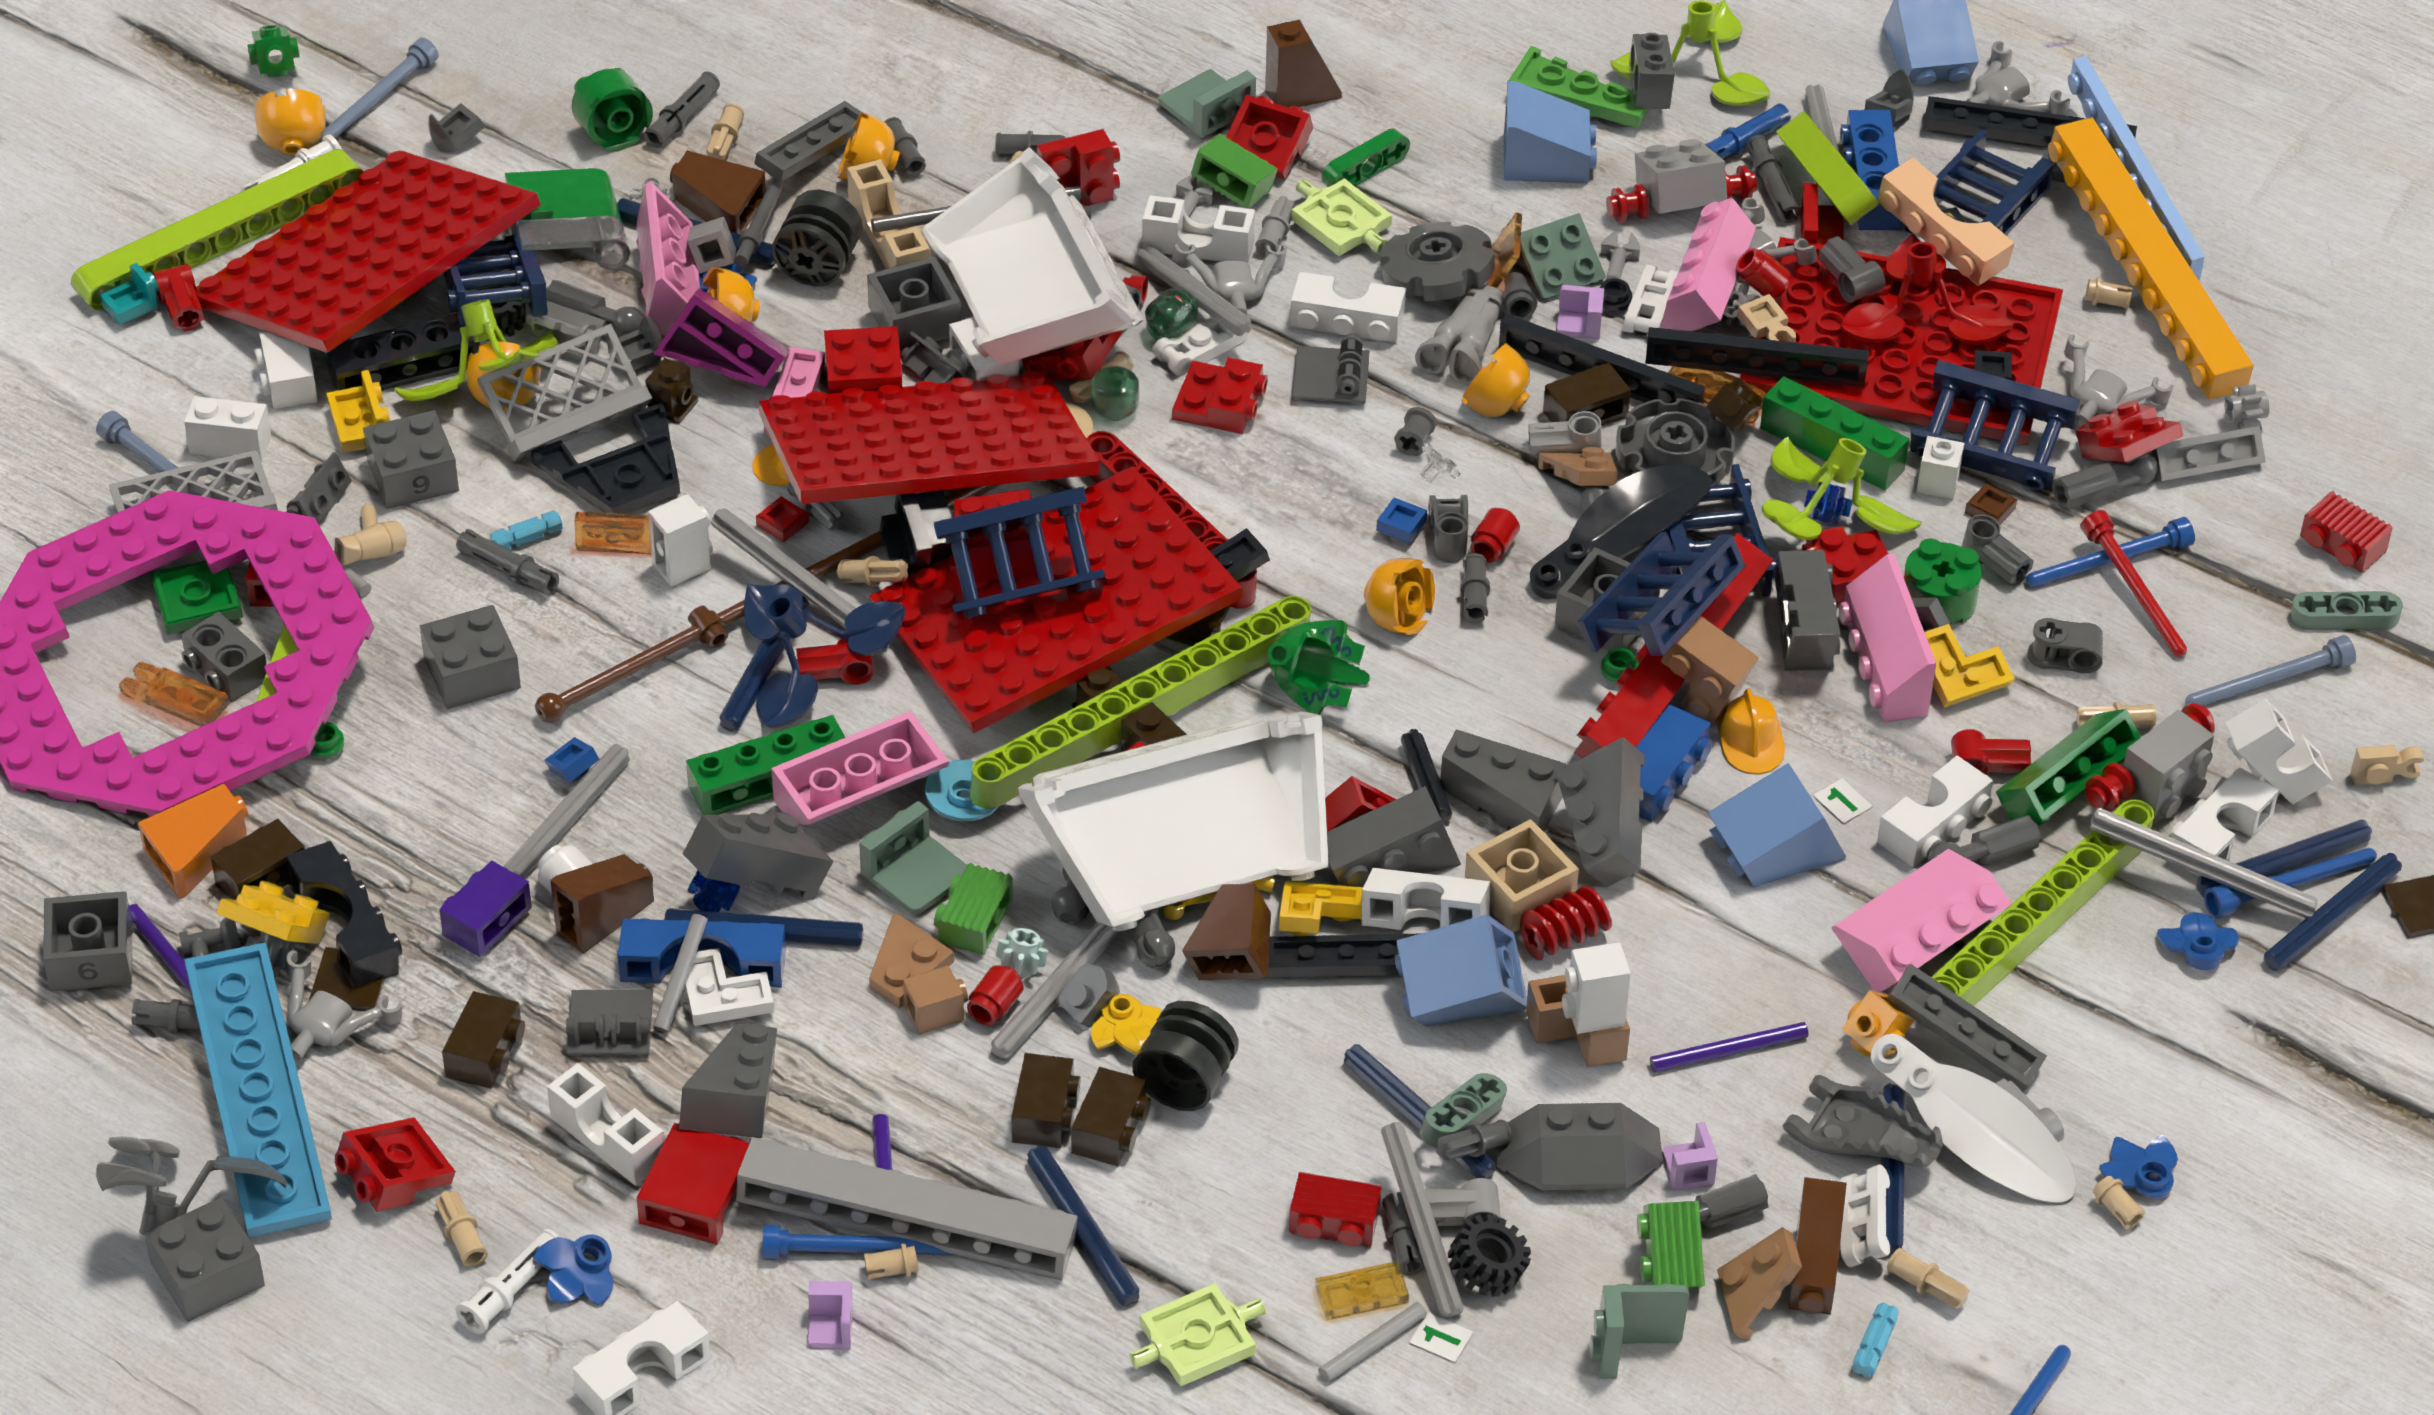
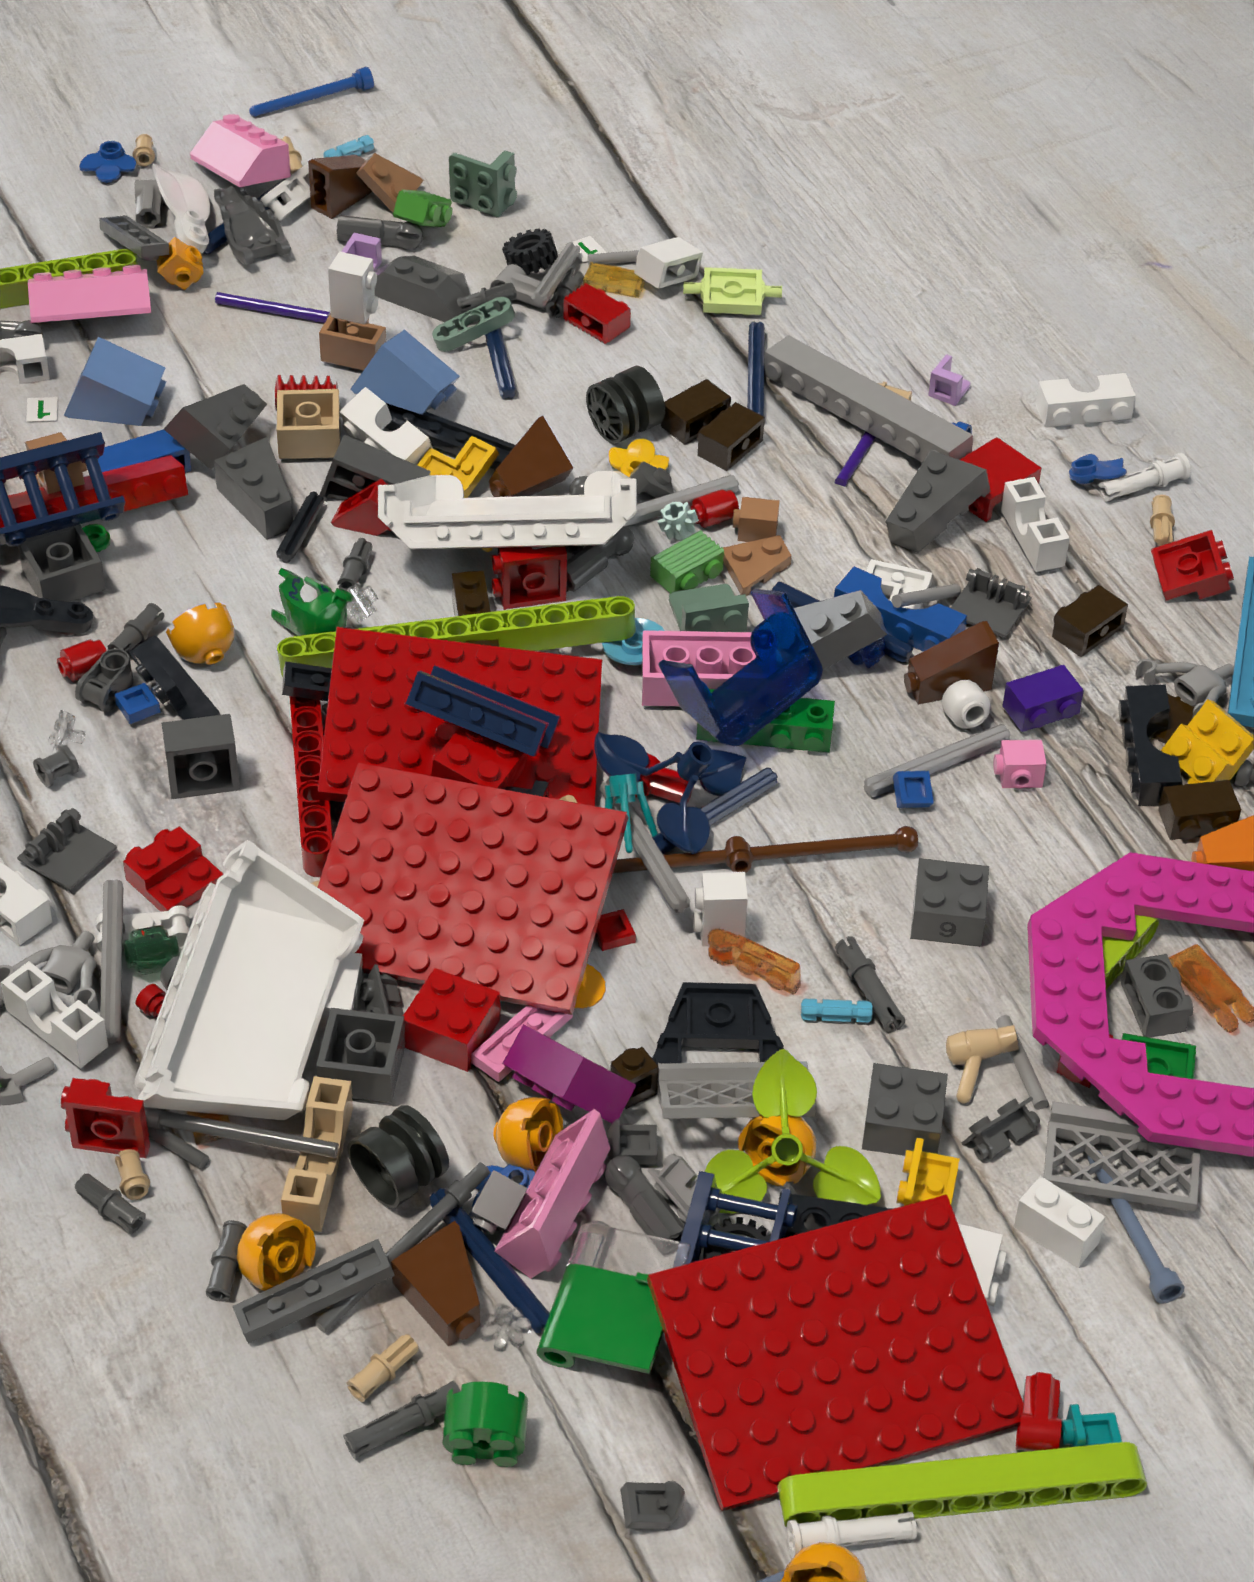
camera: 150 degrees left, 0 degrees up
(473, 834) = (1020, 764): none -> bright pink brick
(785, 731) = (762, 689): none -> clear blue windscreen
(845, 594) = (623, 790): none -> teal plant
(1279, 470) = (200, 756): none -> dark grey brick
(1280, 700) = (362, 603): none -> clear gear
(1304, 1318) = (668, 262): none -> white brick
(1334, 768) = (355, 564): none -> dark grey axle
(1383, 536) = (171, 680): none -> black bracket
(1966, 1212) = (242, 152): none -> bright pink slope

